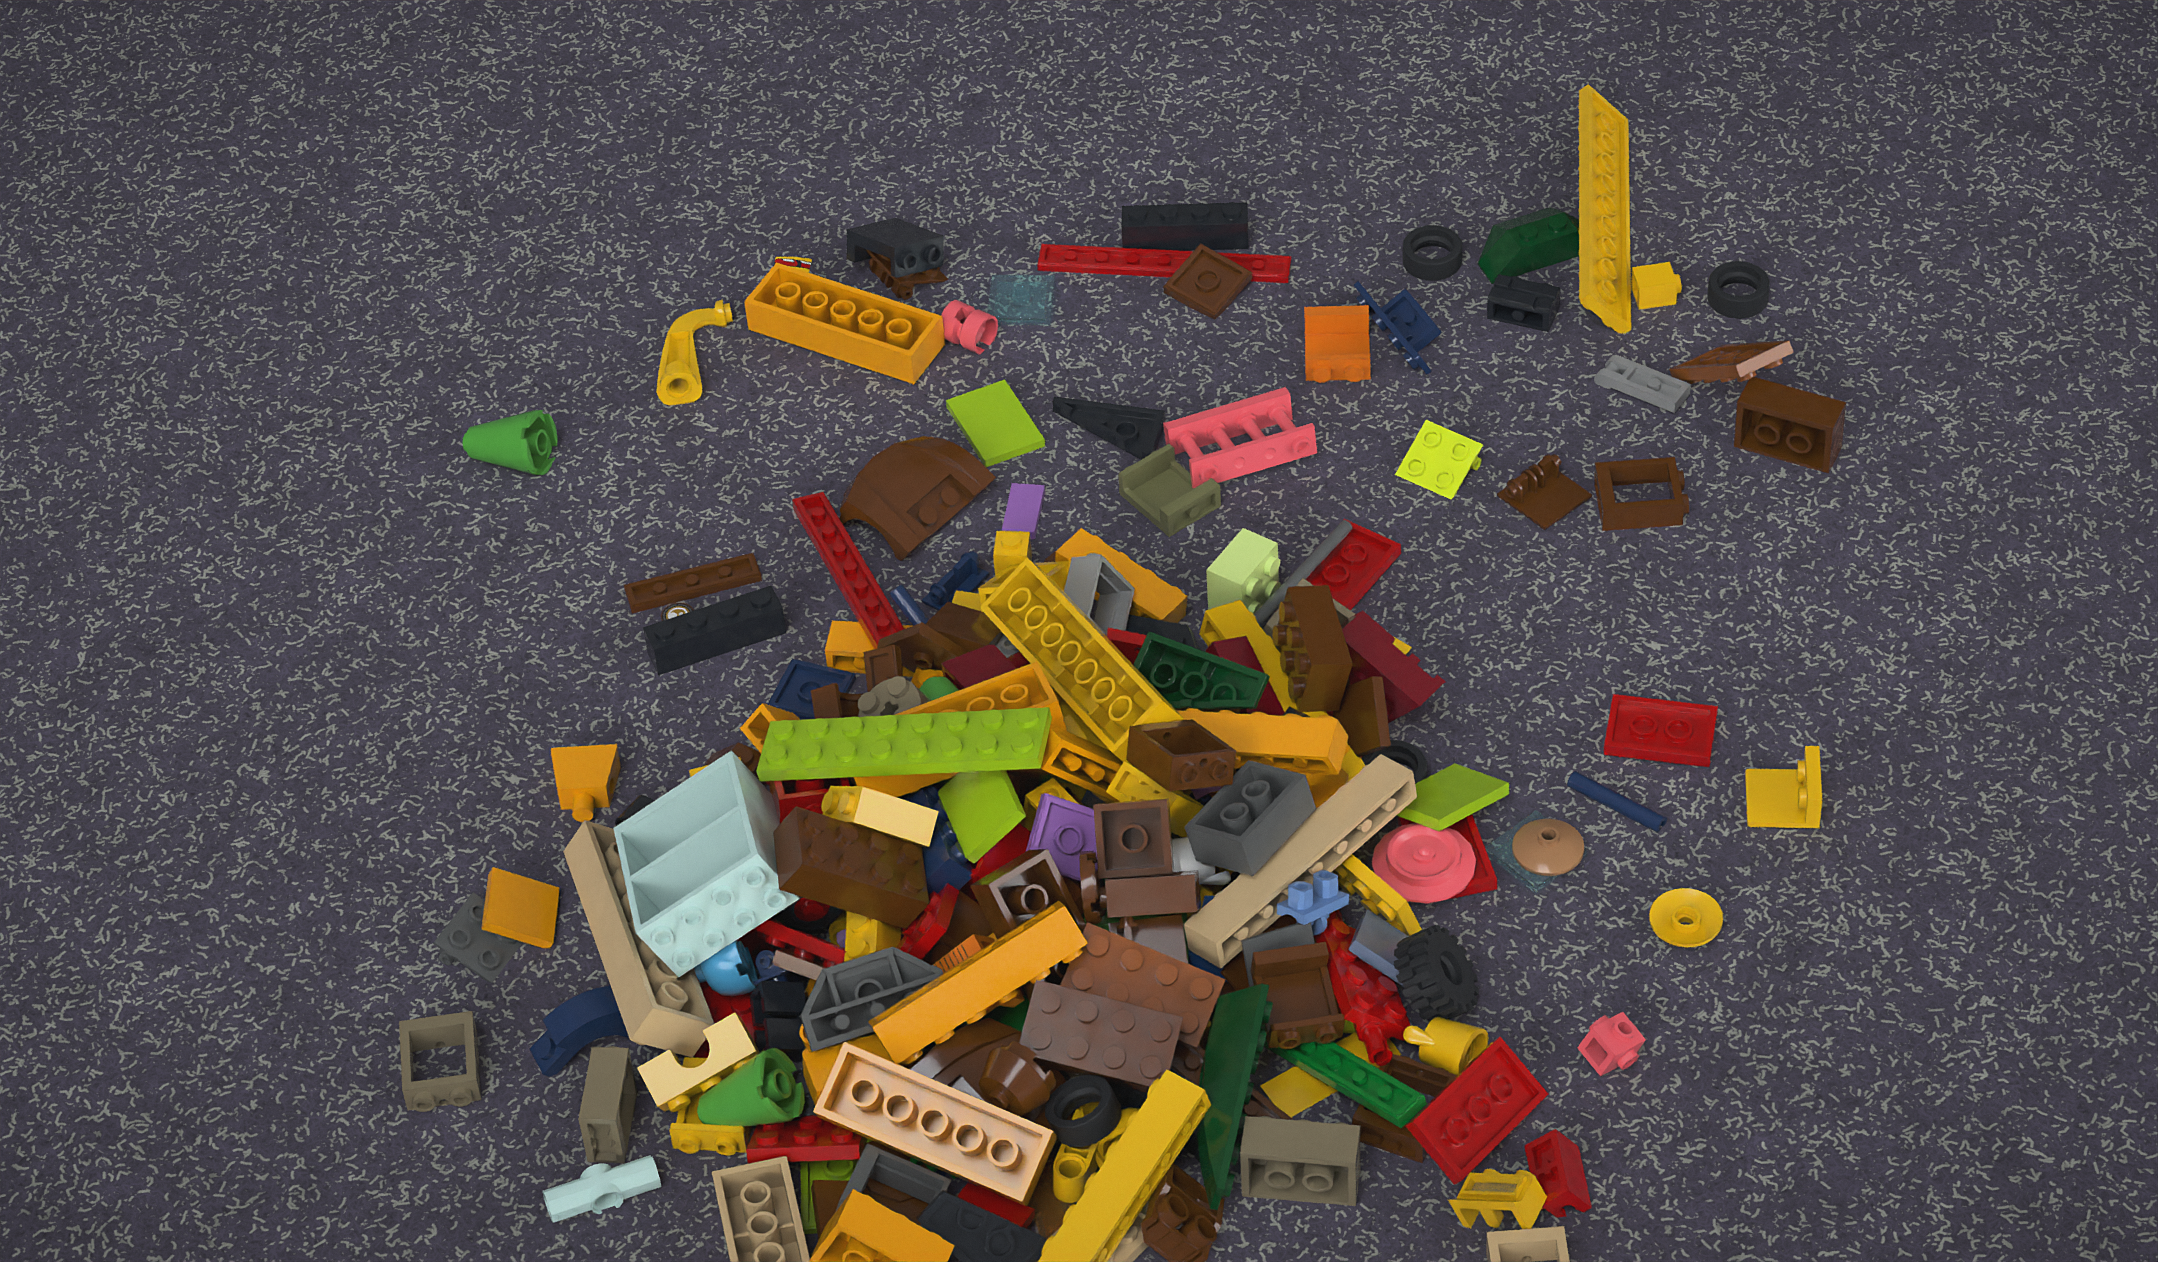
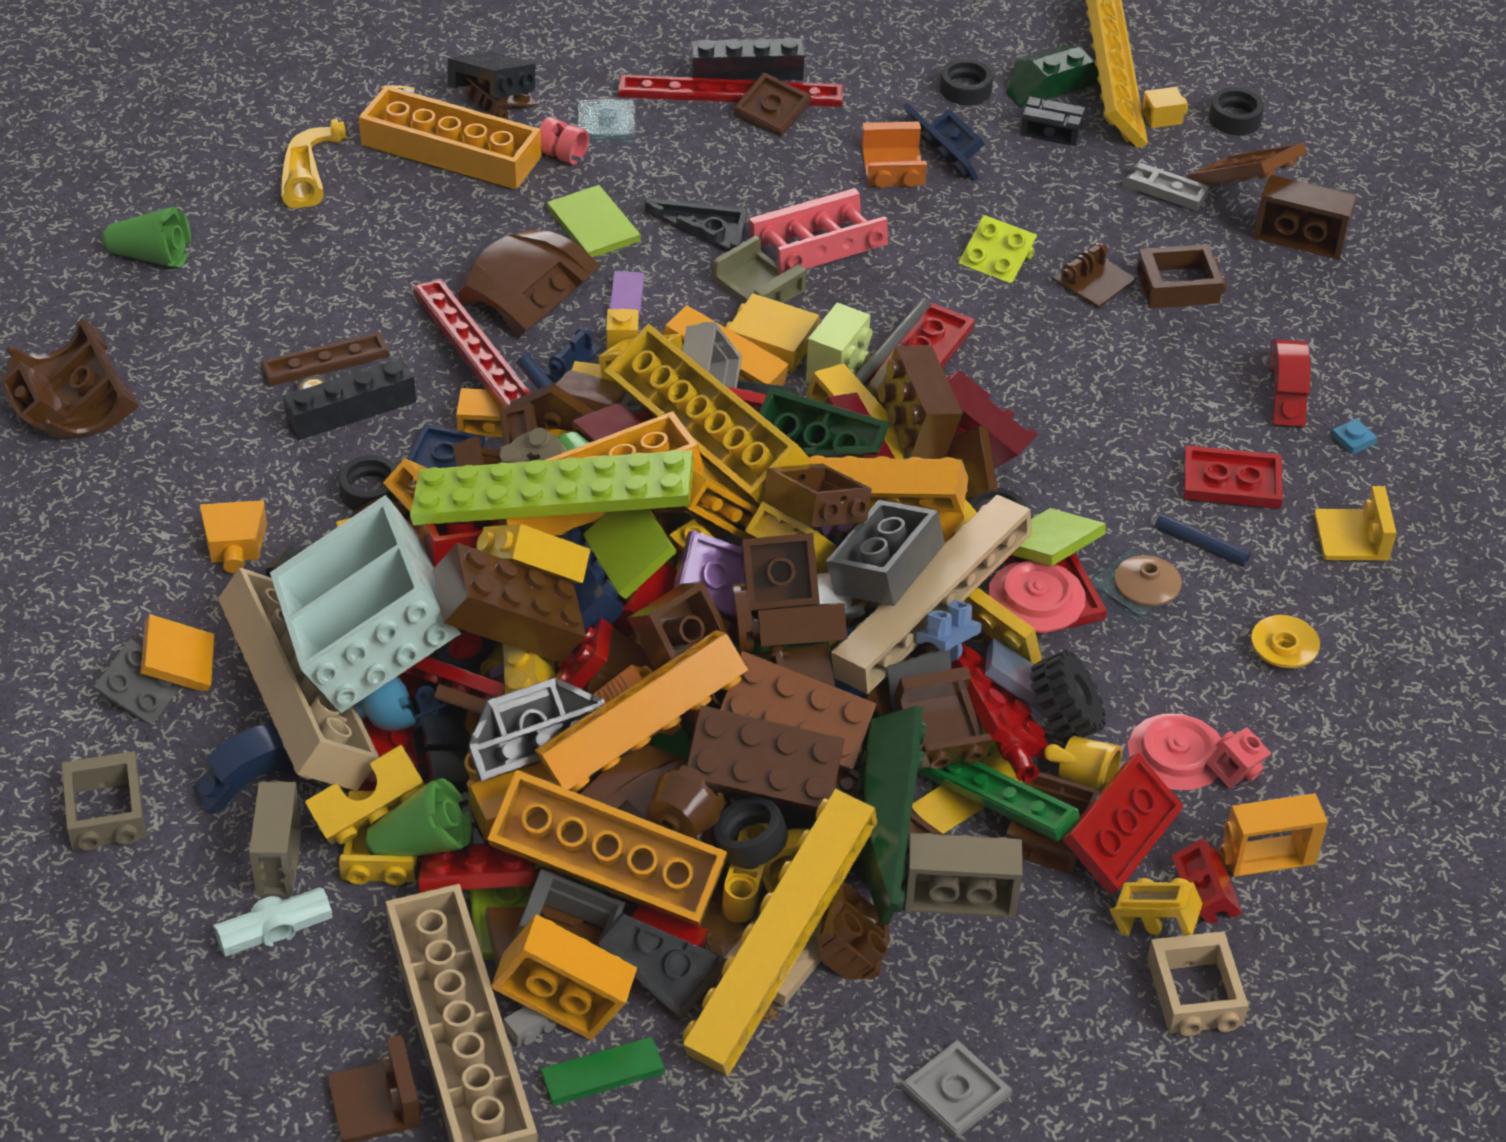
camera: 10 degrees left, 0 degrees up
(420, 616) = (70, 389): none -> reddish brown piece
(719, 708) = (362, 467): none -> black tyre
(1177, 553) = (775, 328): none -> yellow brick
(1547, 1033) = (1176, 749): none -> coral piece
(1632, 1146) = (1301, 848): none -> light orange window
(1740, 622) = (1292, 381): none -> red arch
(1806, 685) = (1354, 436): none -> dark azure plate

